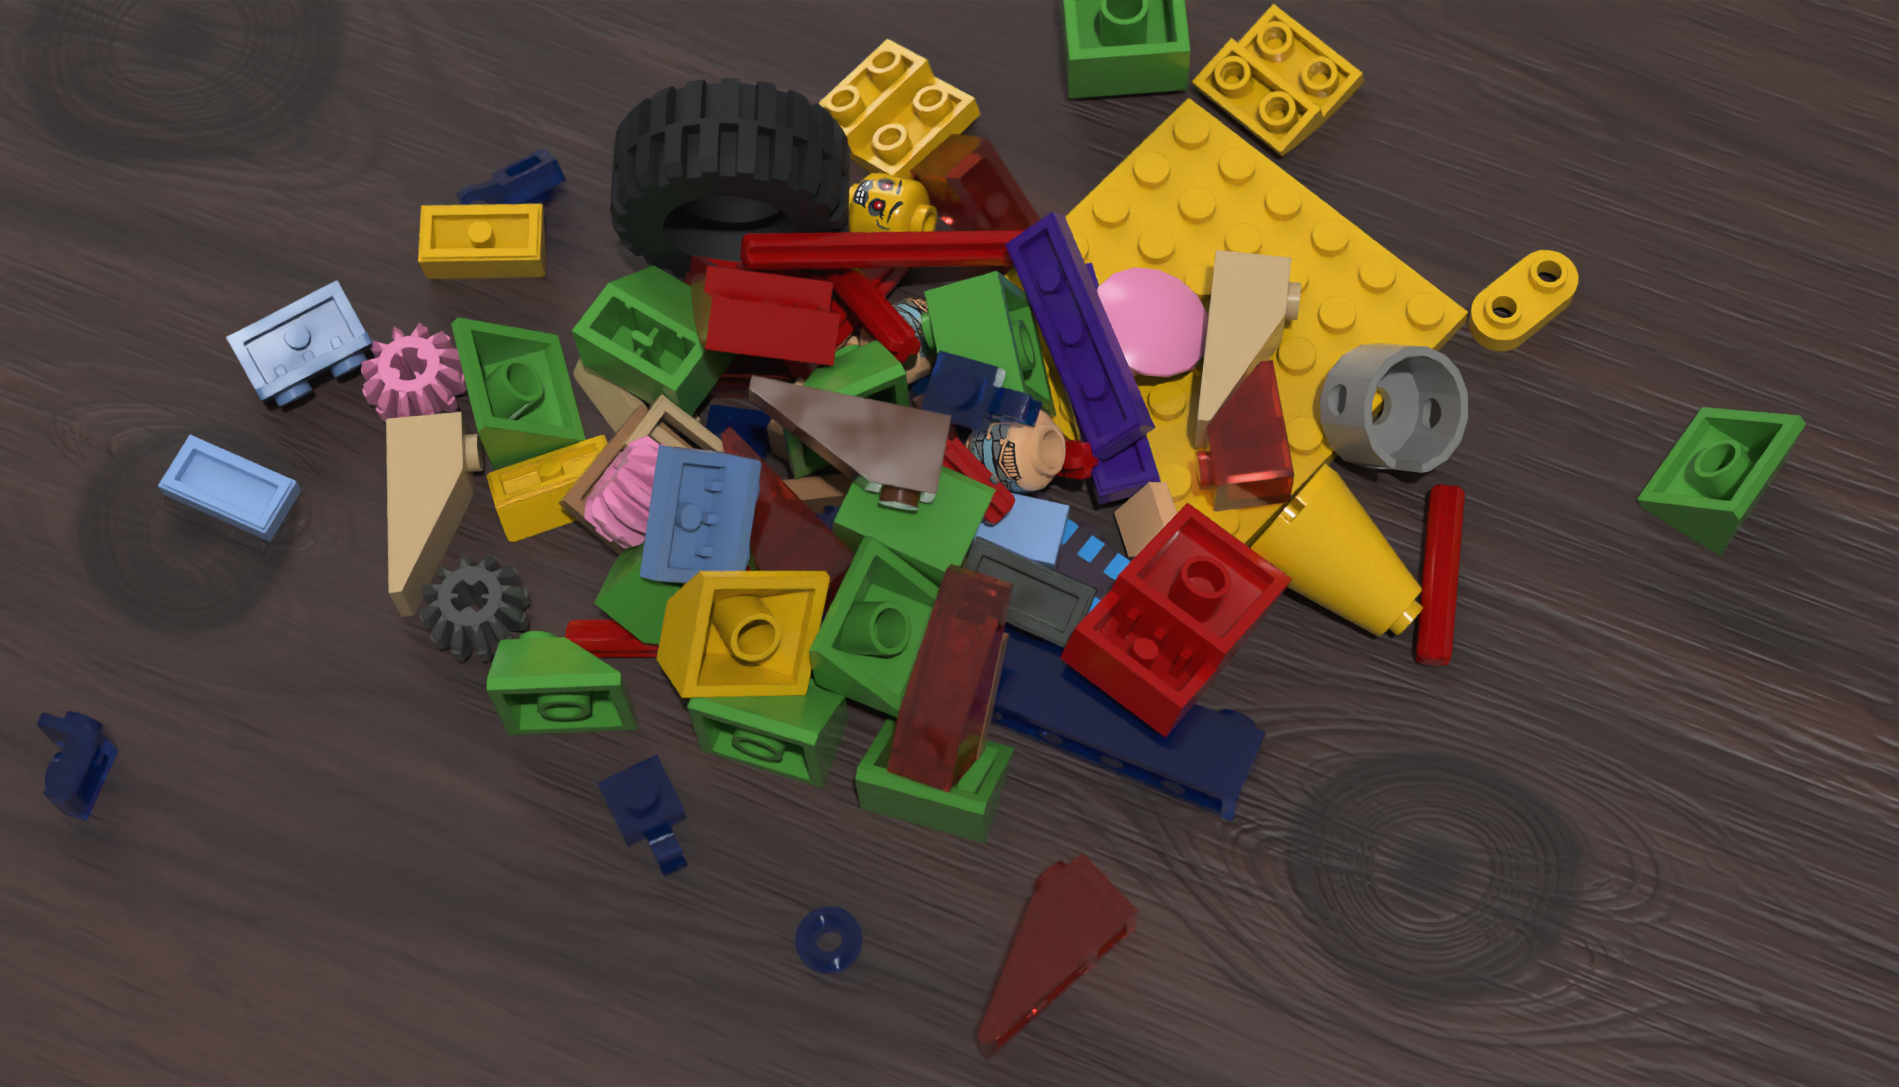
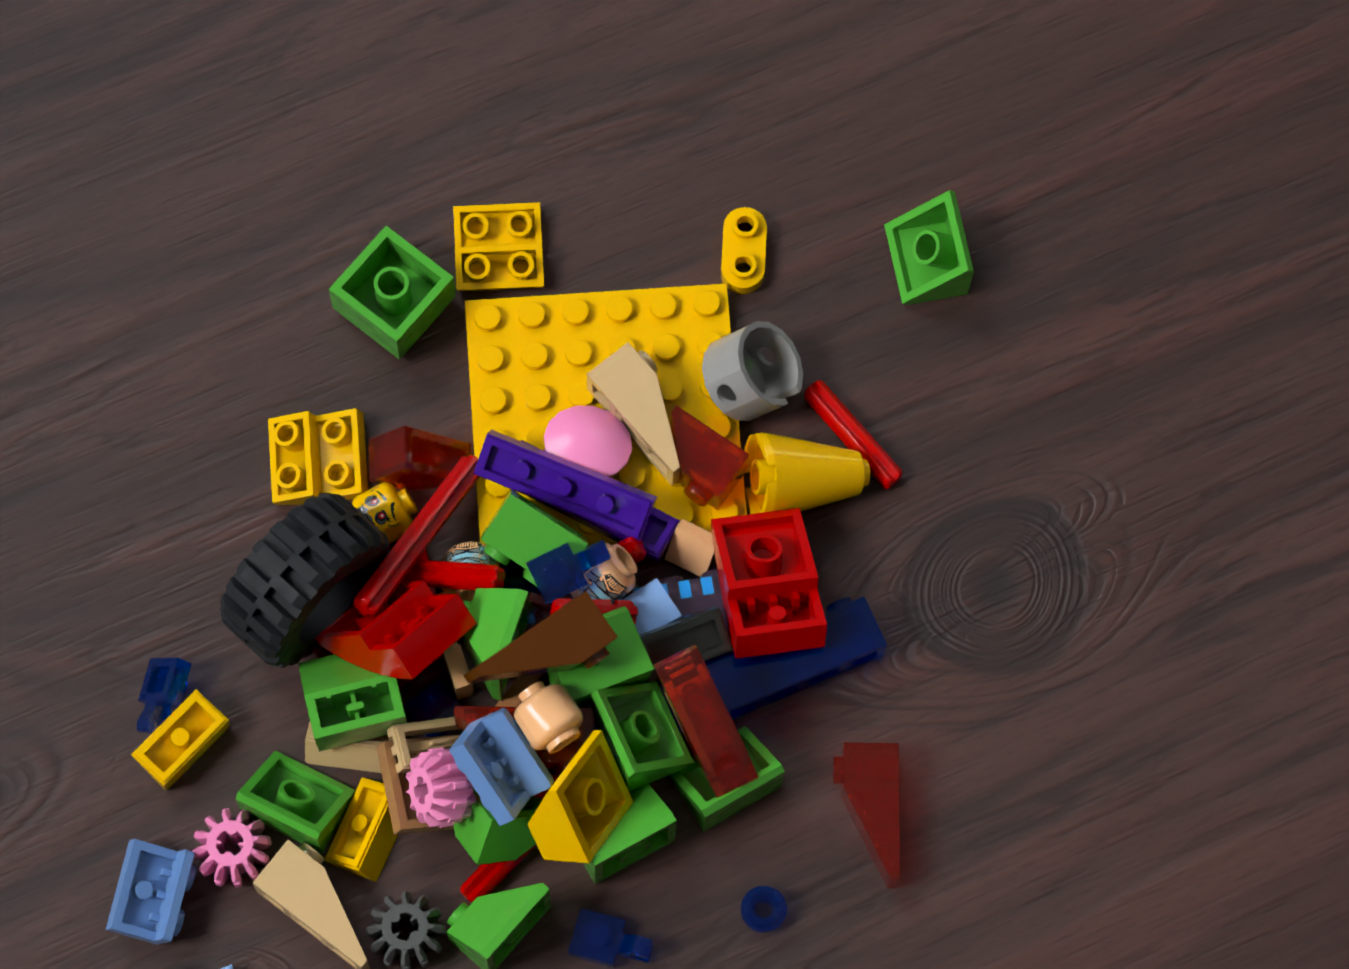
camera: 55 degrees left, 5 degrees up
(794, 514) = (548, 717): none -> light nougat head

